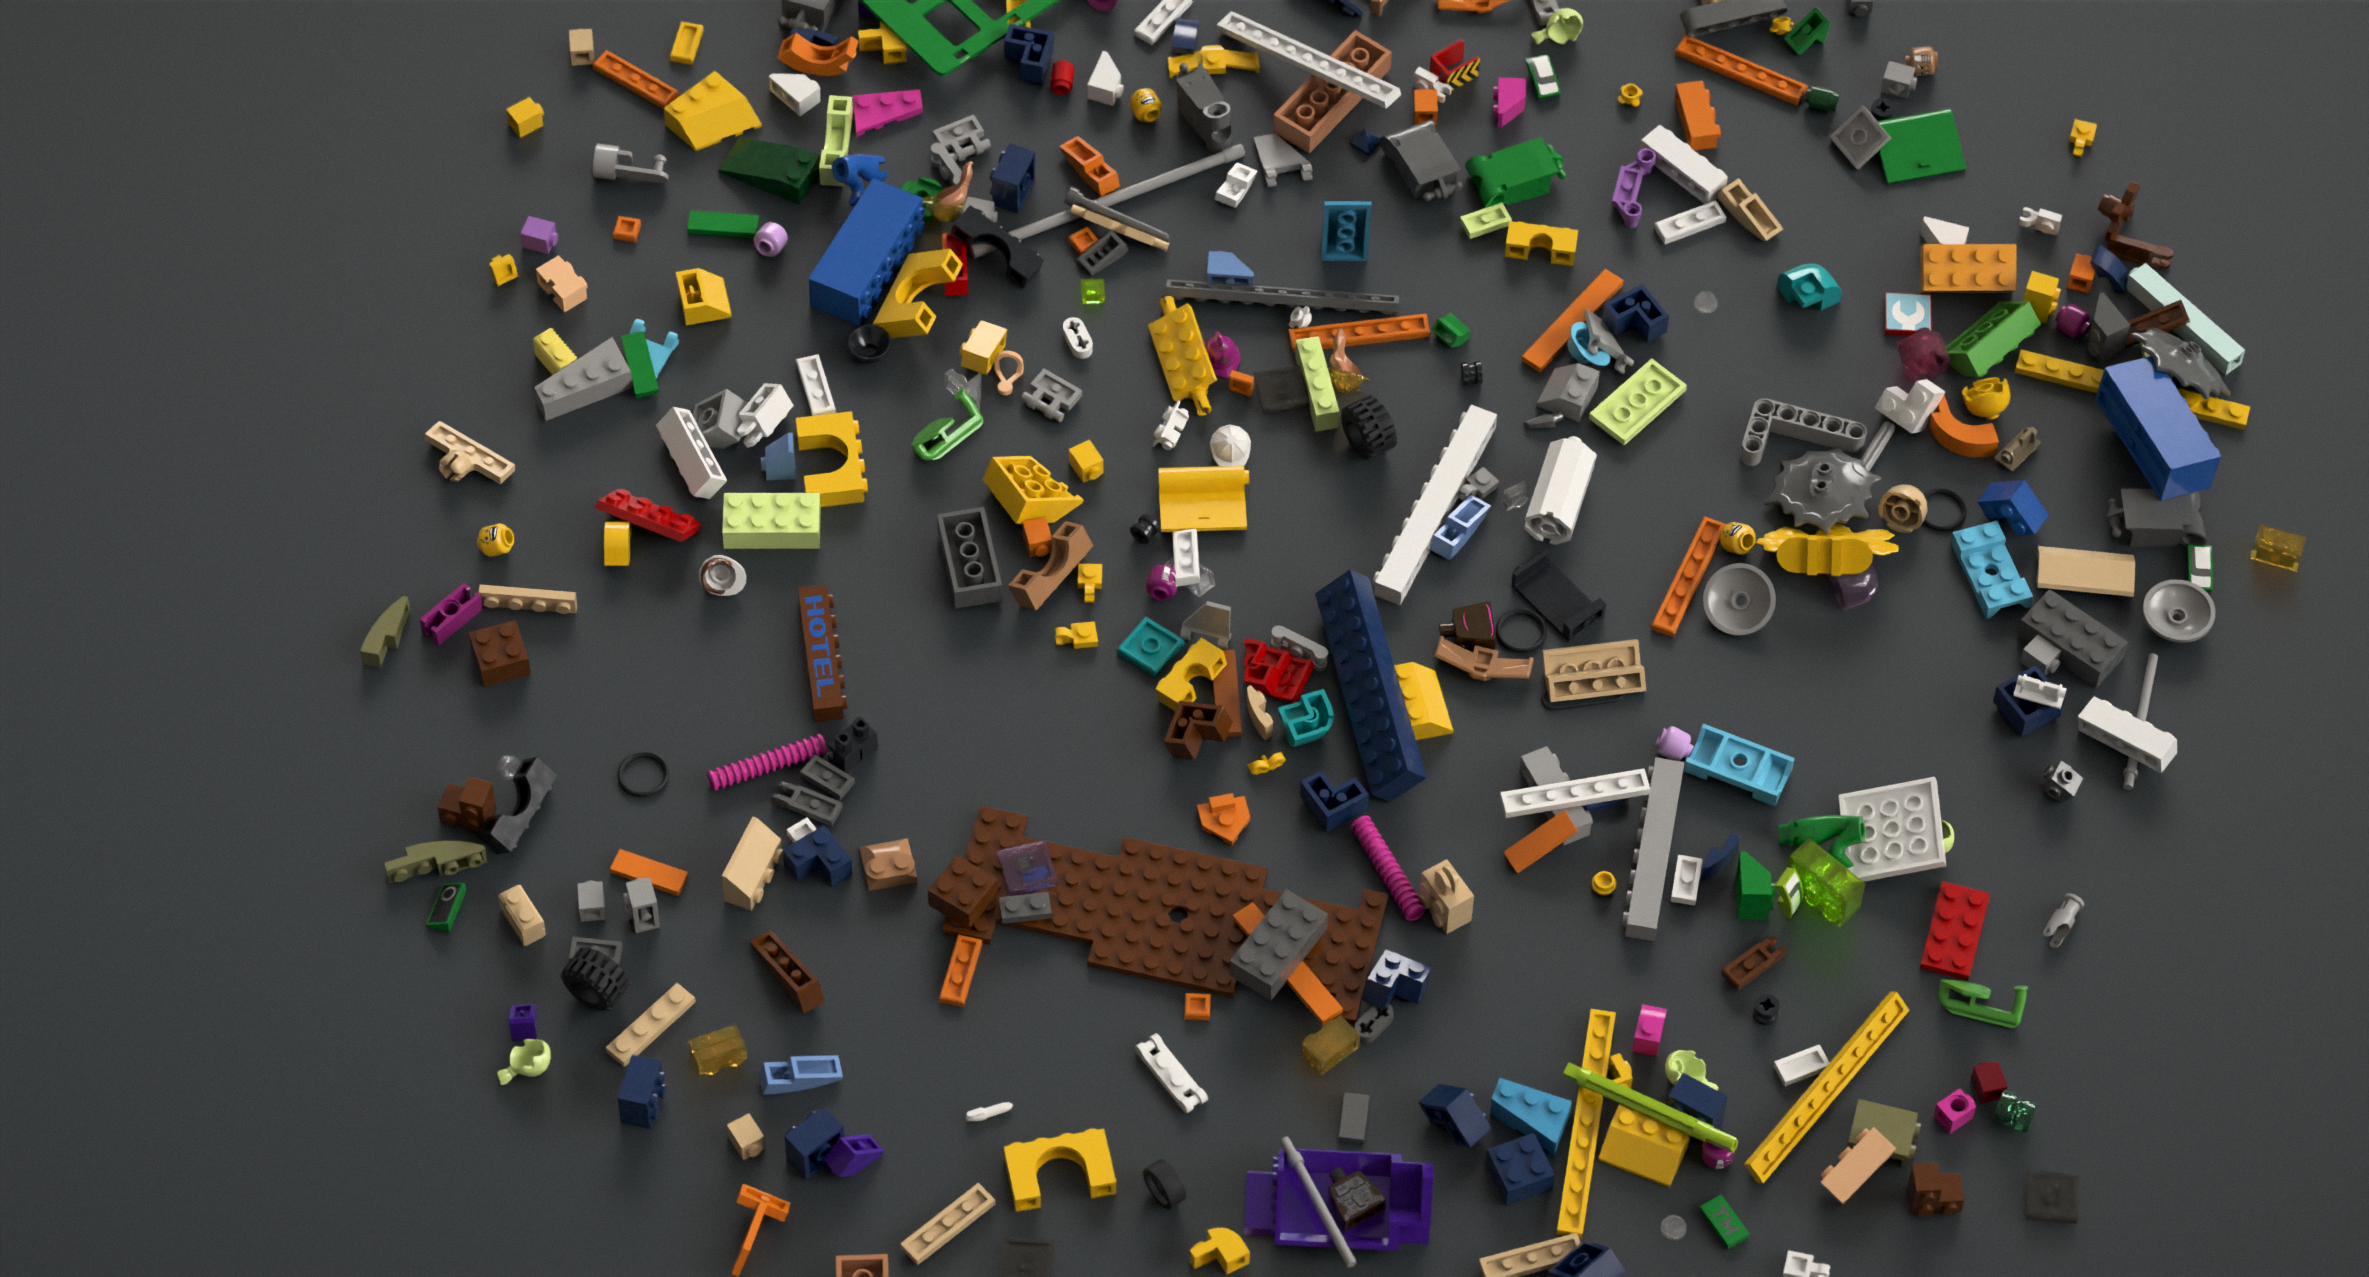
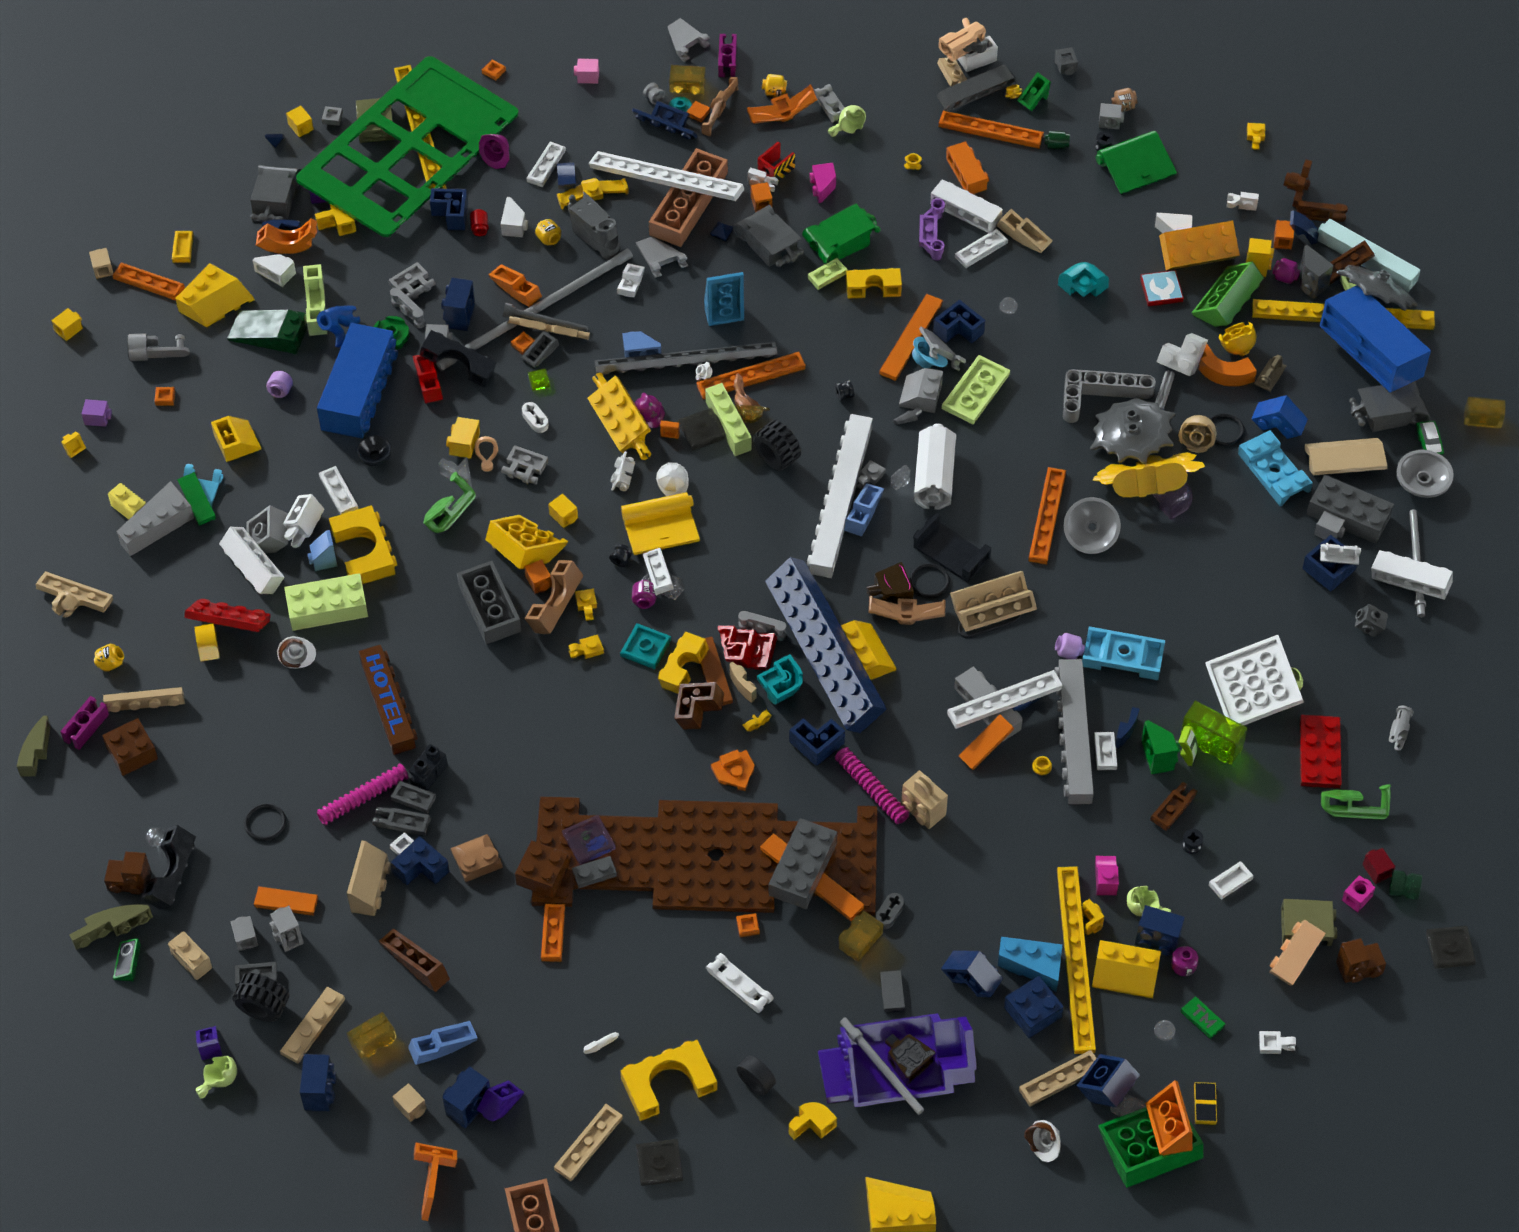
camera: 10 degrees left, 0 degrees up
(560, 279) = (120, 444): light nougat brick -> none
(722, 224) = (239, 379): green tile -> none
(881, 108) = (341, 271): dark pink wing -> none
(919, 271) = (402, 387): yellow arch -> none
(951, 200) = (415, 329): piece -> none
(1210, 620) = (689, 616): light grey flag -> none
(1397, 977) = (900, 871): dark blue brick -> none
(1451, 330) = (821, 360): green piece -> none
(1543, 77) = (845, 159): slope -> none
(1650, 1107) = (1125, 937): lime piece -> none
(1737, 538) = (1078, 479): yellow head -> none
(1823, 828) = (1201, 691): green piece -> none
(1826, 1087) = (1254, 894): yellow plate -> none
(1860, 137) = (1093, 163): light grey tile -> none
(1923, 354) = (1183, 315): clear pink brick -> none

